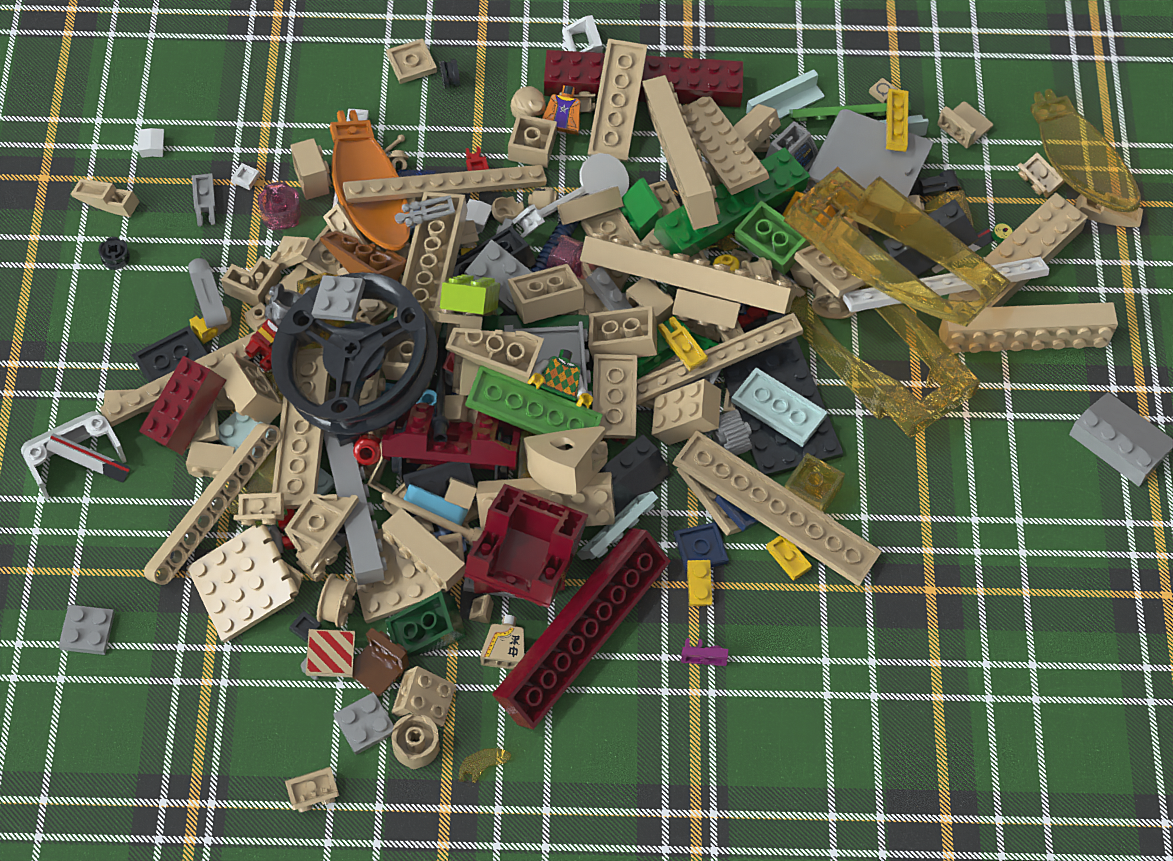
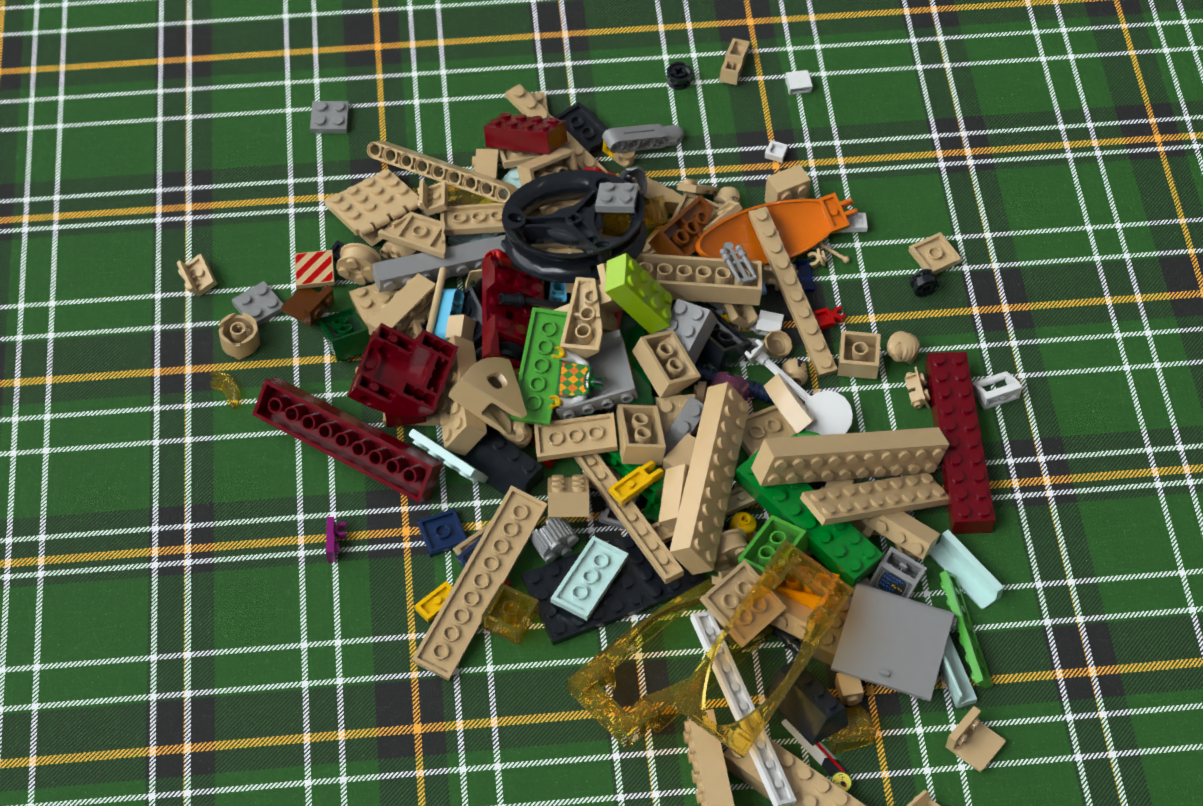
camera: 85 degrees right, 5 degrees down
(76, 430) = (500, 76): white windscreen -> none
(87, 457) = (475, 87): sticker -> none
(204, 197) = (746, 126): light grey hinge -> none
(253, 285) = (661, 169): tan brick -> none
(279, 206) = (746, 175): clear pink brick -> none
(304, 227) = (726, 194): none -> tan head
(424, 695) = (280, 341): tan bracket -> none
(503, 644) = (331, 387): tan torso -> none
(565, 111) = (897, 376): torso -> none
(617, 99) = (928, 410): tan plate -> none
(699, 583) = (403, 531): yellow plate -> none
(880, 90) = (1002, 662): tan tile -> none
(897, 120) = (946, 659): yellow plate -> none
(945, 182) = (890, 723): black piece -> none

